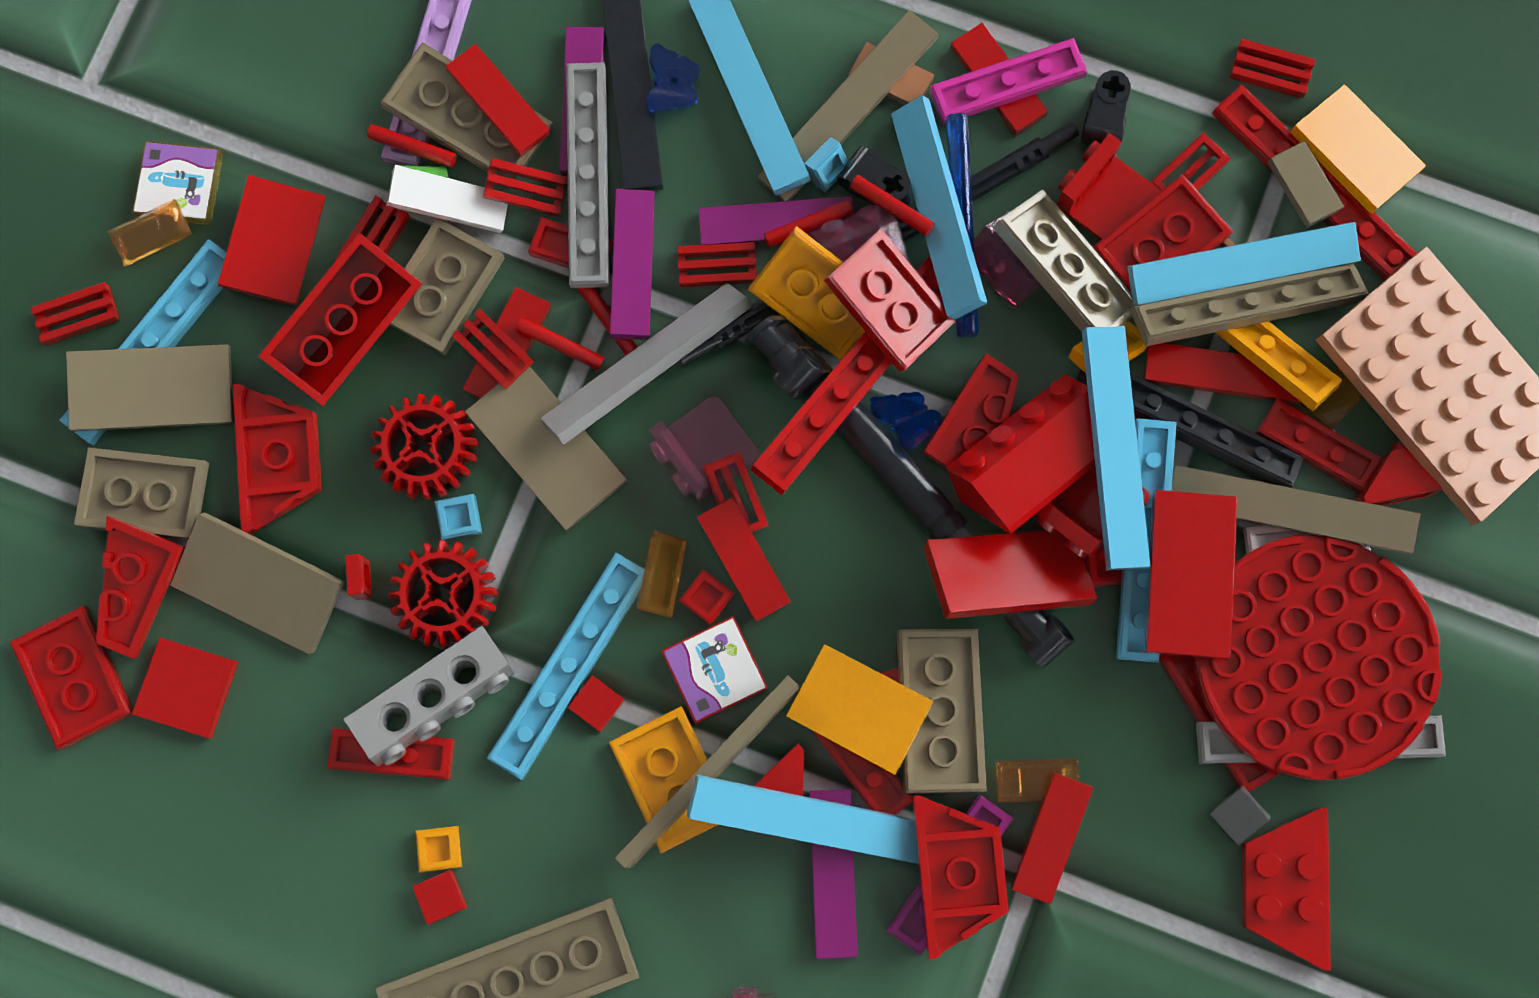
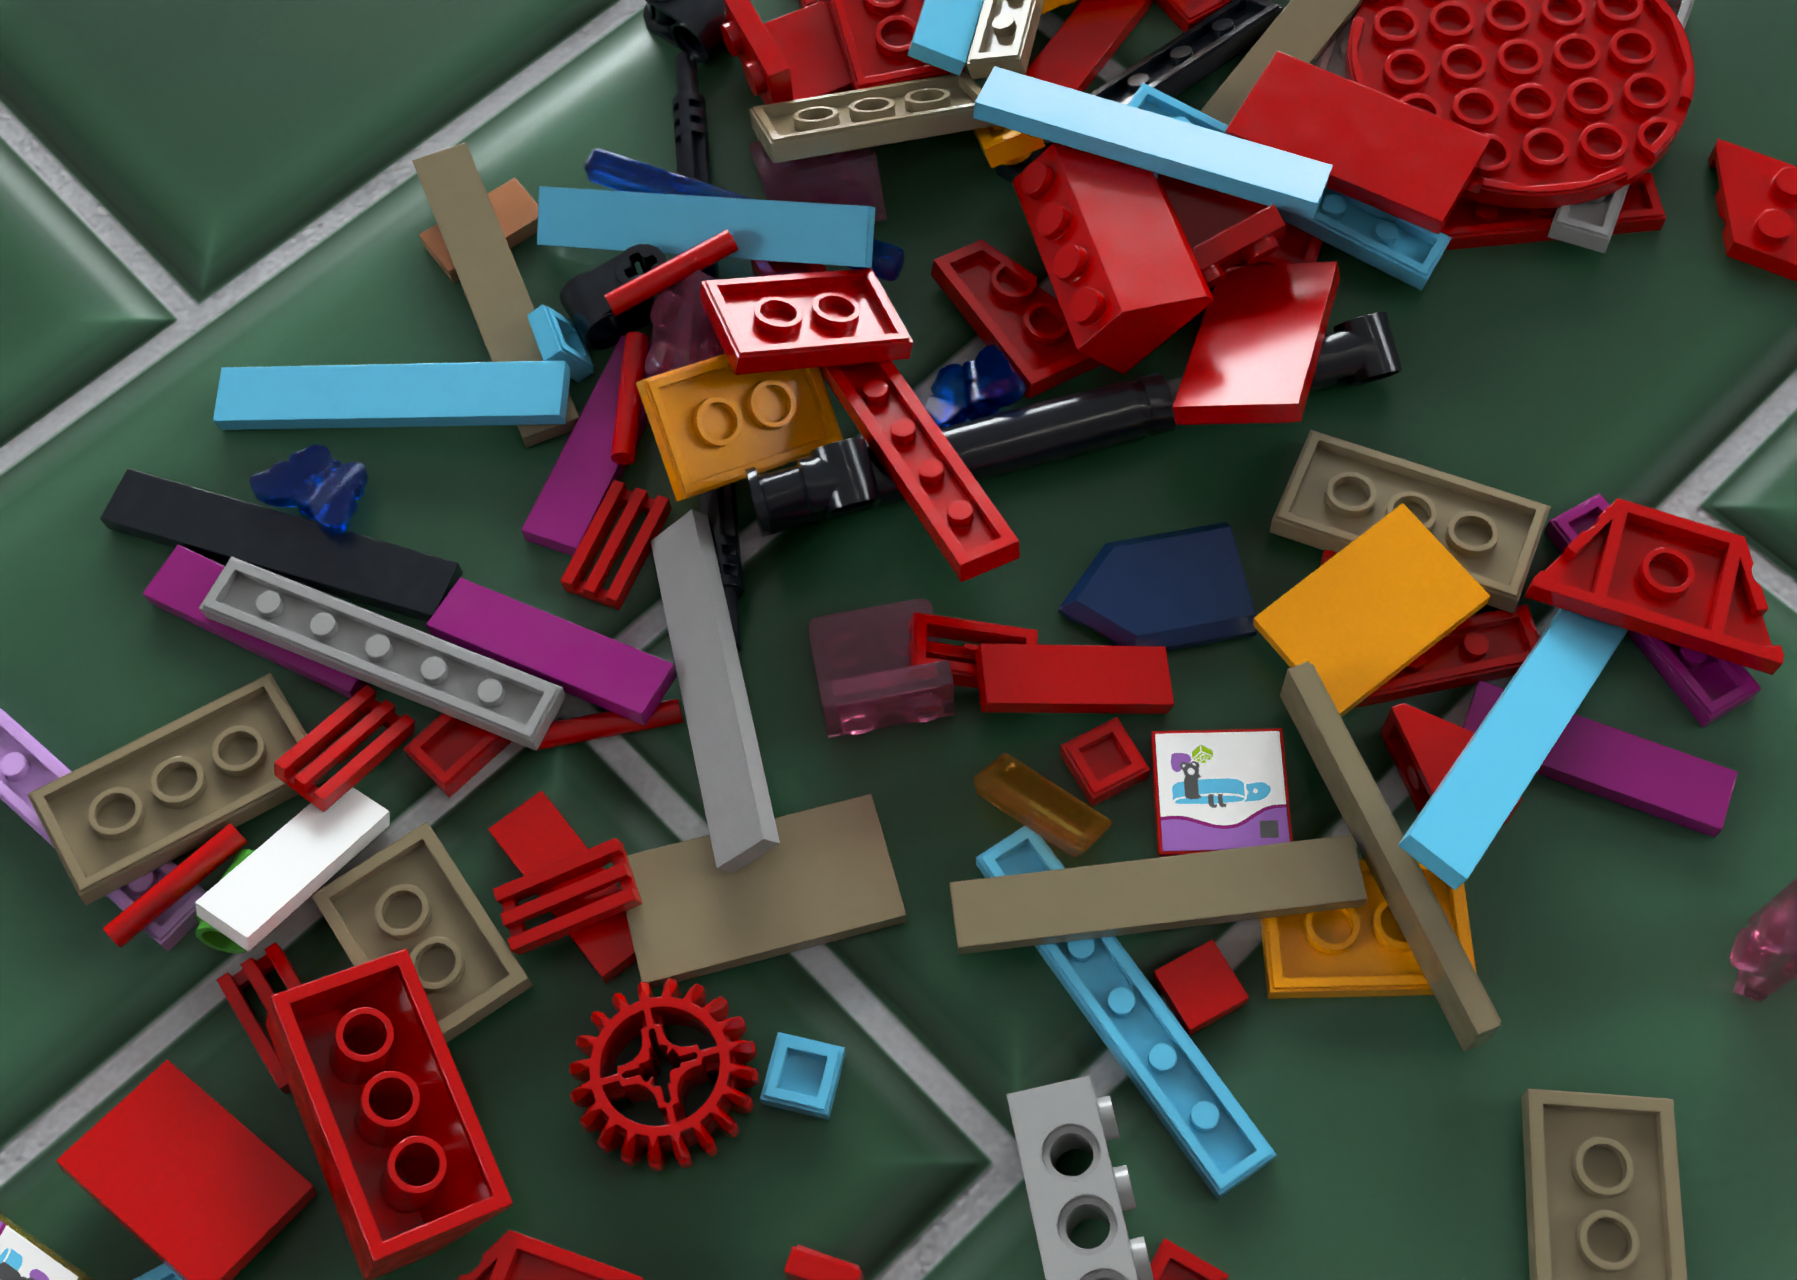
camera: 65 degrees left, 15 degrees down
(430, 605) = (906, 1086): red gear -> none
(498, 100) = (188, 724): red tile -> none
(559, 343) = (611, 801): red piece -> none
(633, 659) = (1157, 894): none -> dark tan tile
(831, 586) = (1166, 590): none -> dark blue tile
(979, 50) = (566, 114): red tile -> none
(1009, 80) = (578, 95): dark pink tile -> none
(1029, 778) = (1556, 445): clear orange tile -> none
(1051, 837) = (1646, 452): red tile -> none
(1240, 815) = (1693, 233): dark grey tile -> none

